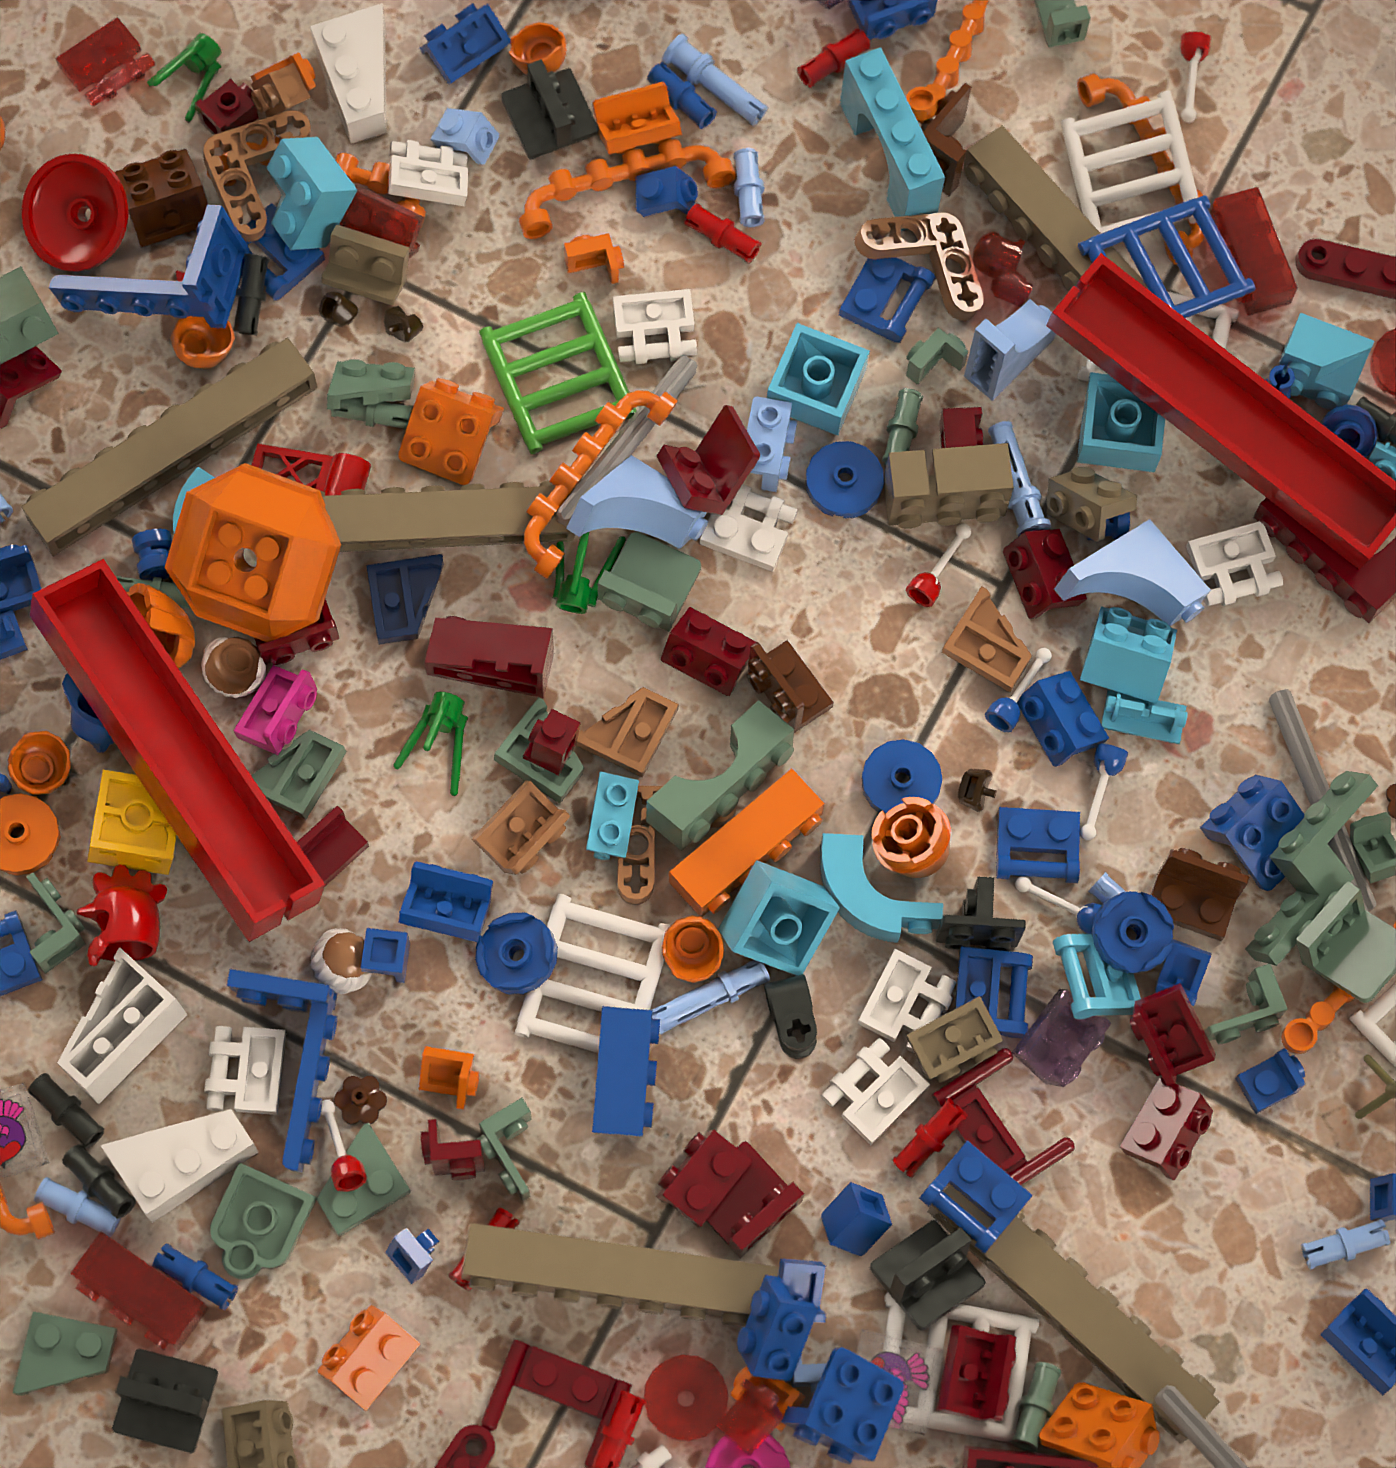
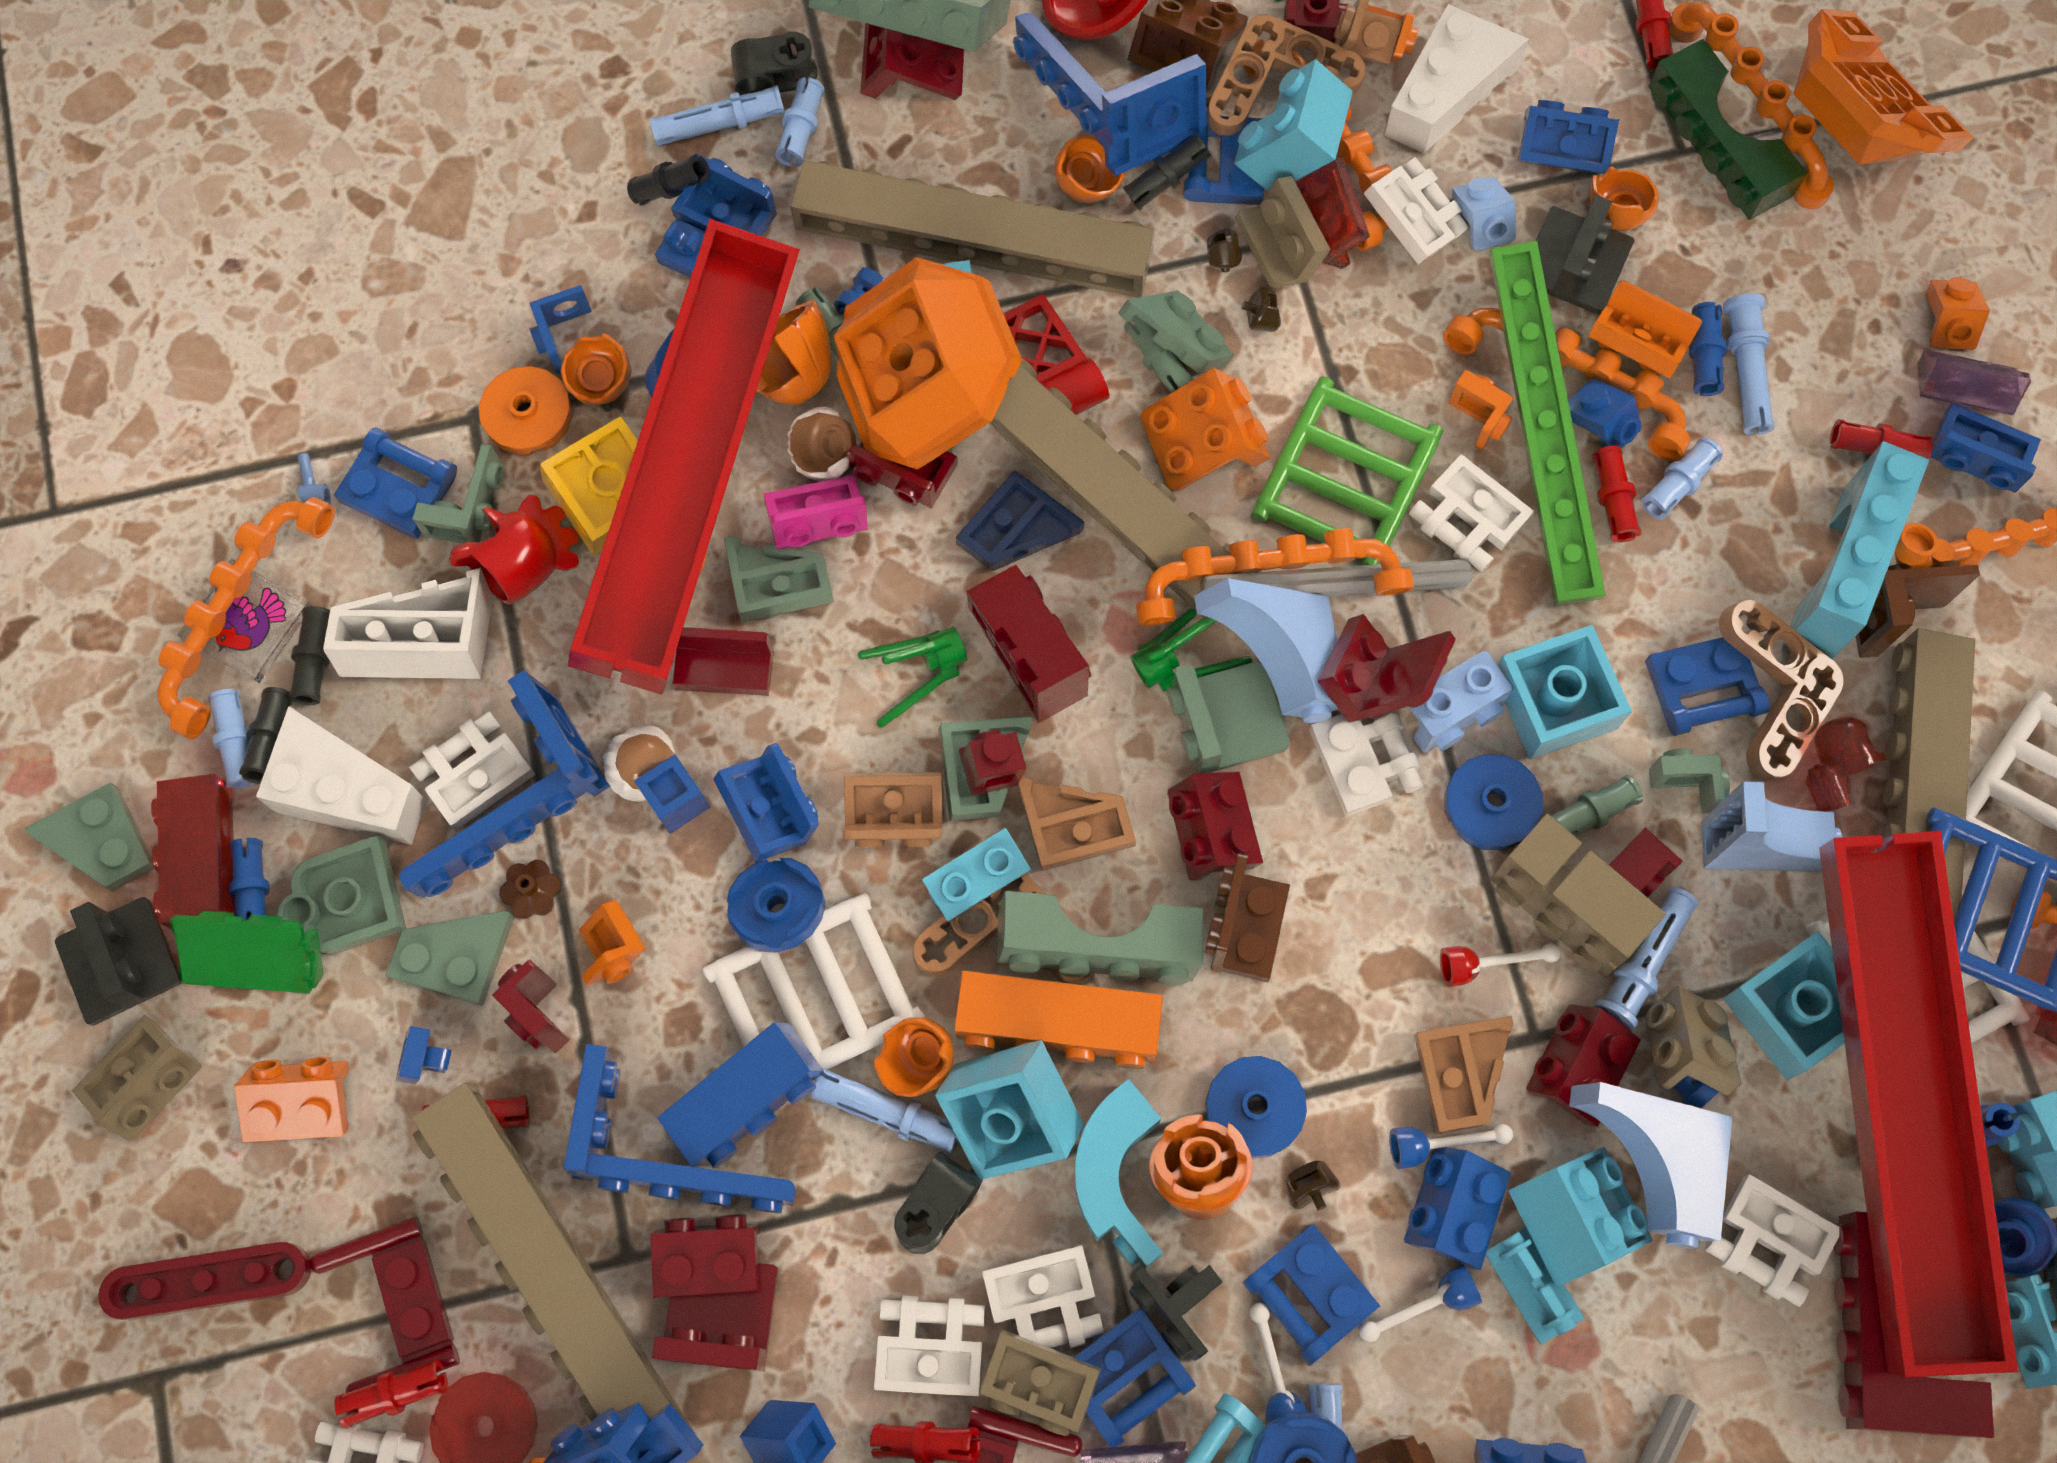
camera: 55 degrees right, 0 degrees up
(243, 1307) = (247, 953): none -> green piece
(346, 1170) = (441, 932): red hinge -> none
(508, 1123) = (588, 1025): sand green bracket -> none
(562, 1175) = (592, 1130): none -> blue bracket
(641, 229) = (1546, 424): none -> bright green plate

